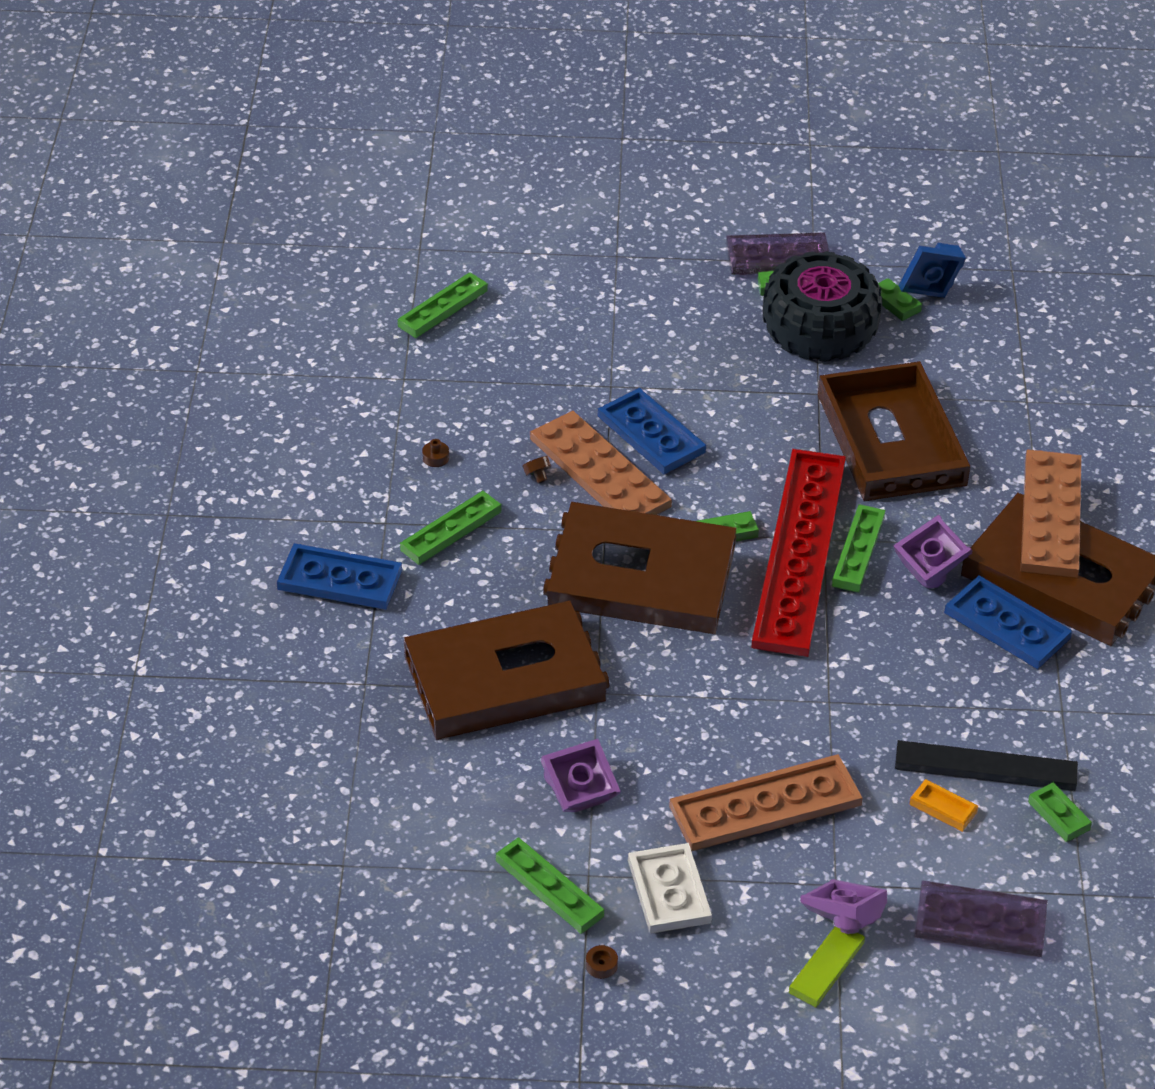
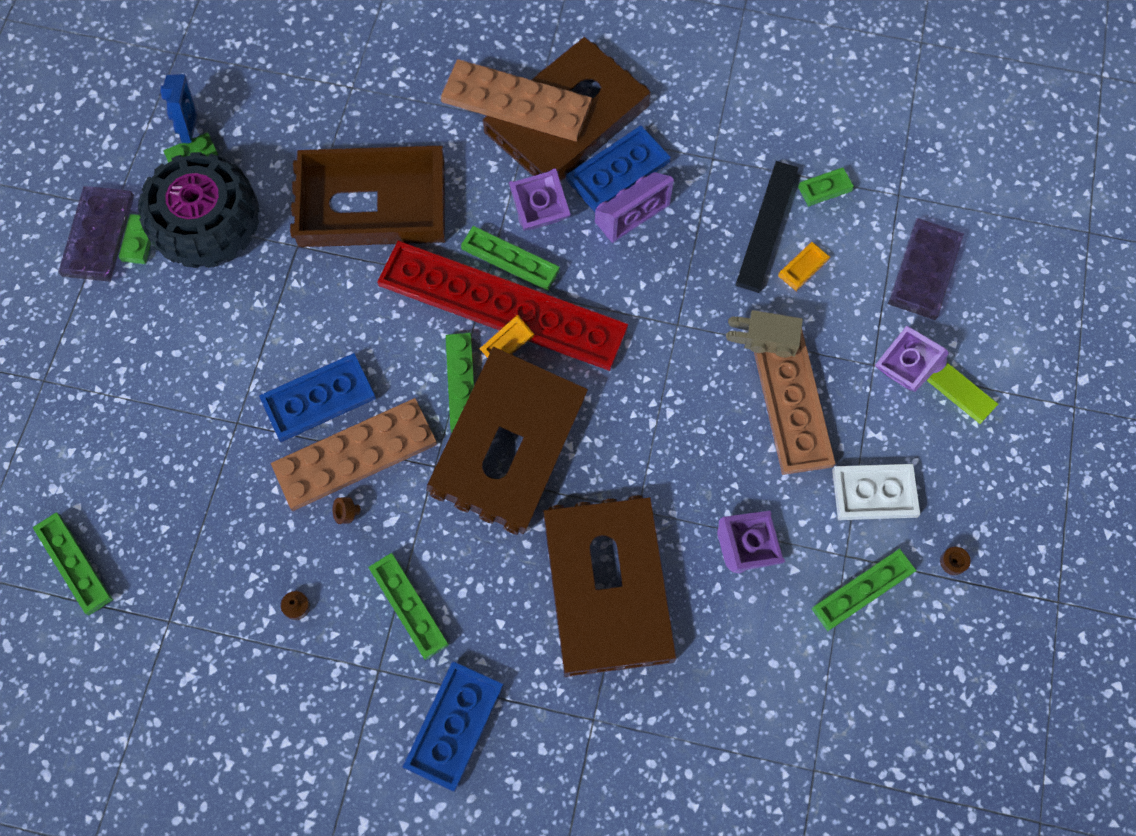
camera: 80 degrees left, 25 degrees up
(757, 555) = (509, 338): none -> light orange tile
(832, 760) = (767, 333): none -> dark tan hinge
(958, 636) = (634, 205): none -> medium lavender slope

